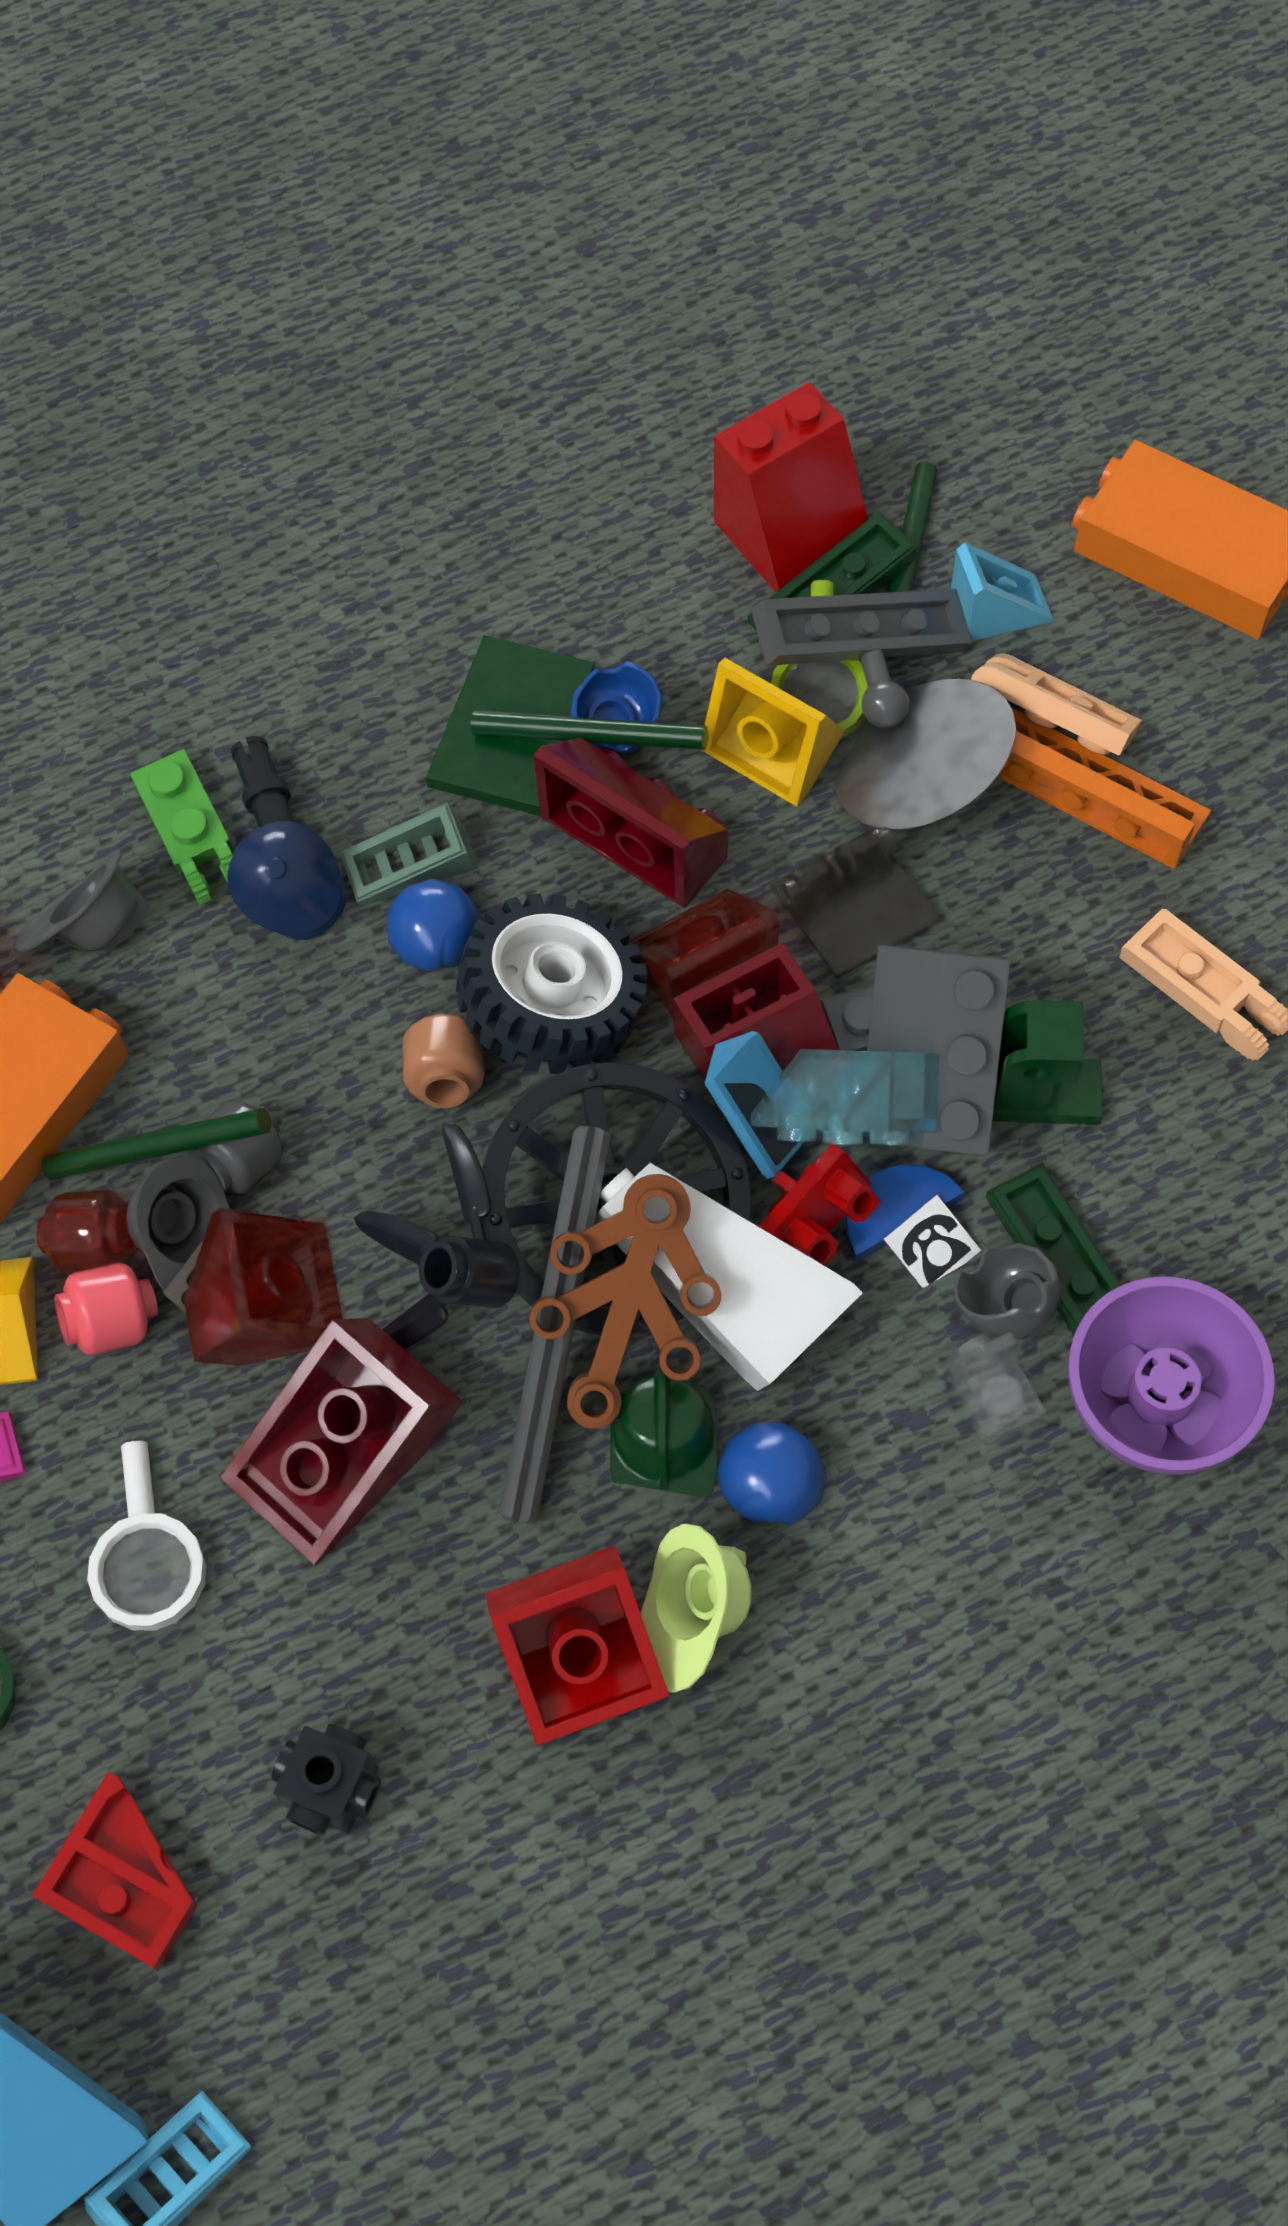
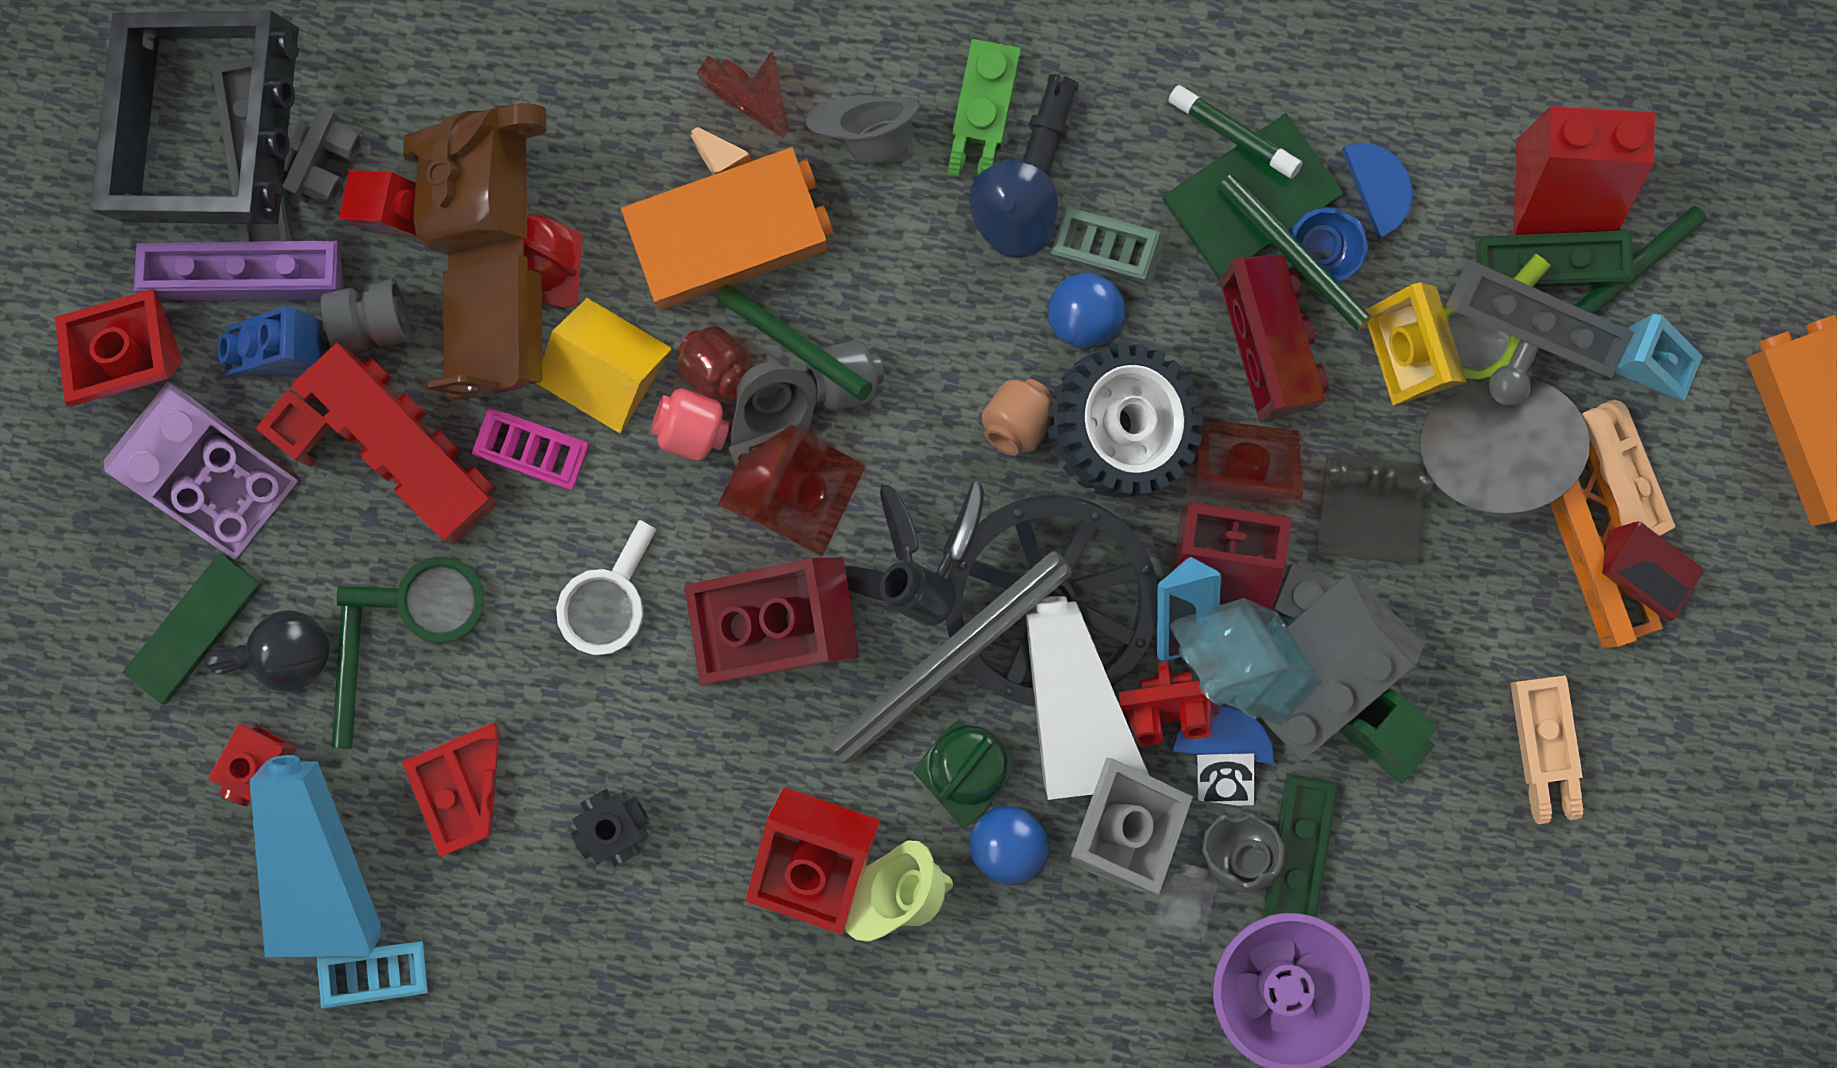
camera: 35 degrees right, 20 degrees up
(449, 678) = (1235, 132): none -> dark green bar
(621, 634) = (1381, 185): none -> blue tile
(629, 1289) = (1004, 682): dark orange plant -> none
(877, 1347) = (1131, 828): none -> light grey slope
(1150, 758) = (1650, 568): none -> dark red slope

